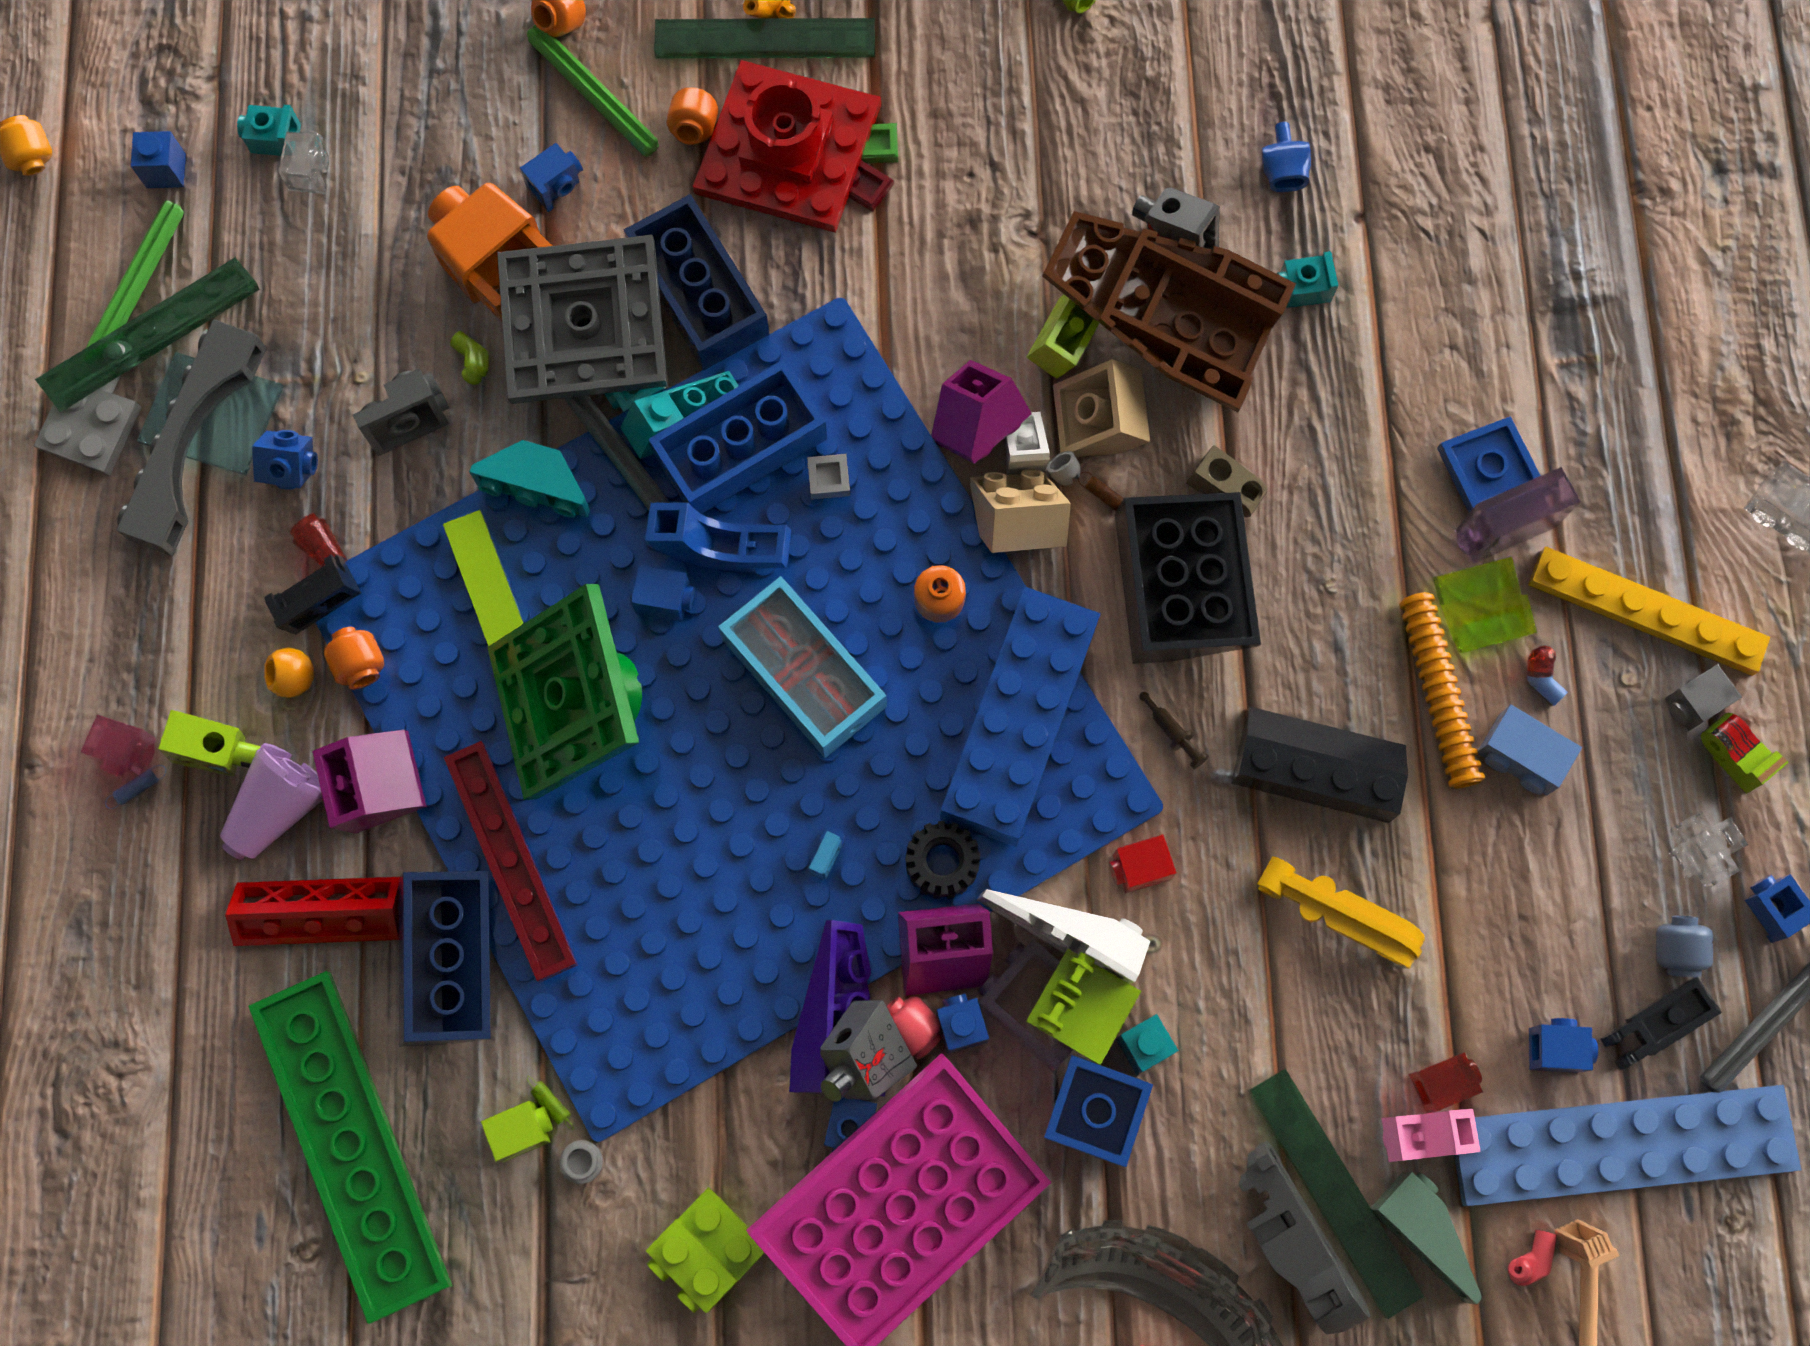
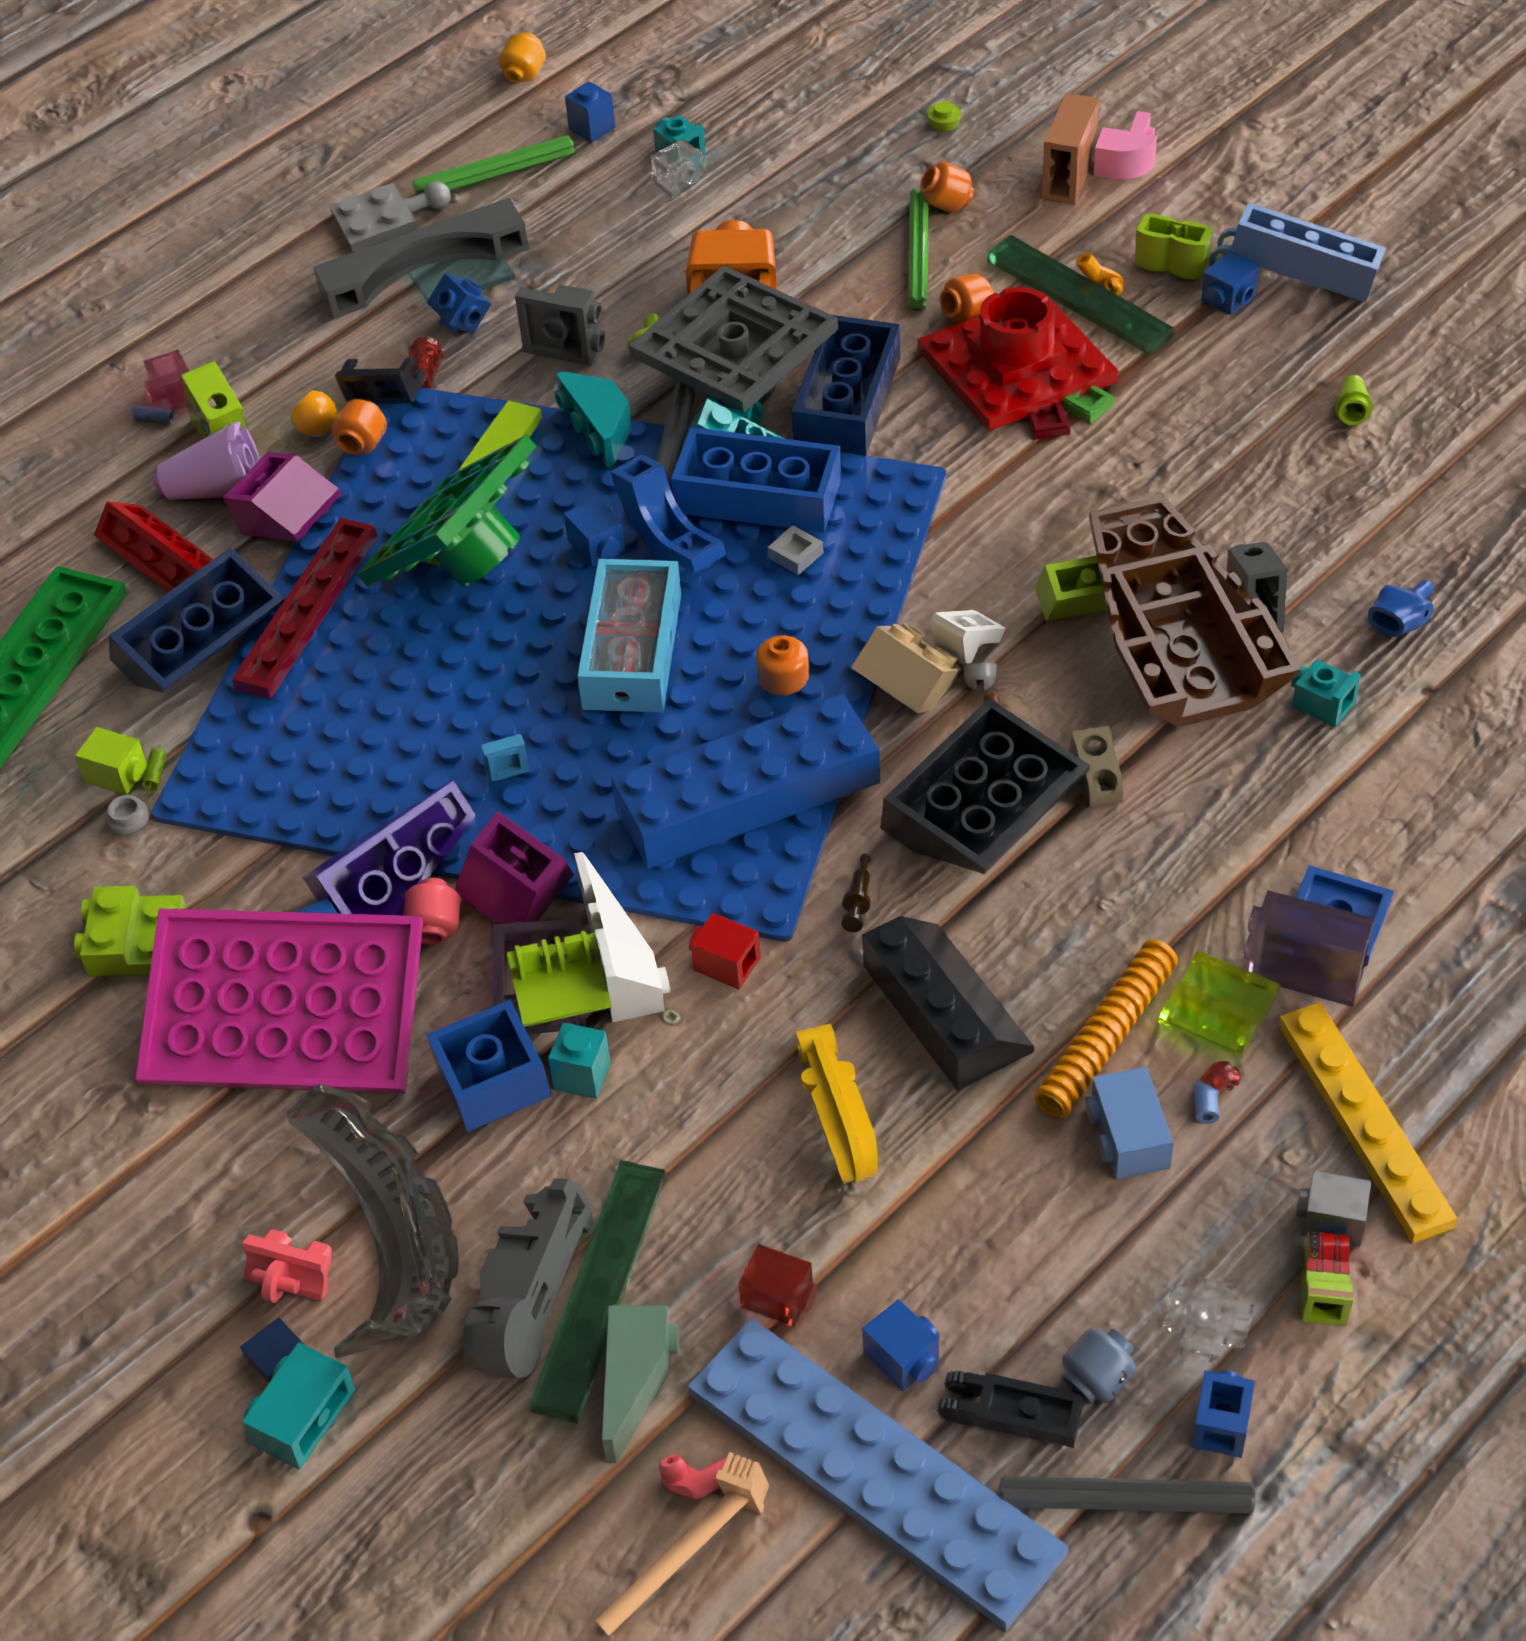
camera: 50 degrees right, 25 degrees down
(147, 334) = (465, 190): clear green tile -> none
(551, 175) = (827, 271): blue brick -> none
(864, 1053) = (370, 878): dark grey torso -> none
(948, 835) = (576, 808): black tyre -> none
(961, 1023) = (465, 938): blue brick -> none
(977, 411) = (954, 580): magenta slope -> none
(1102, 410) = (1055, 657): tan slope -> none
(1430, 1135) = (713, 1306): bright pink brick -> none

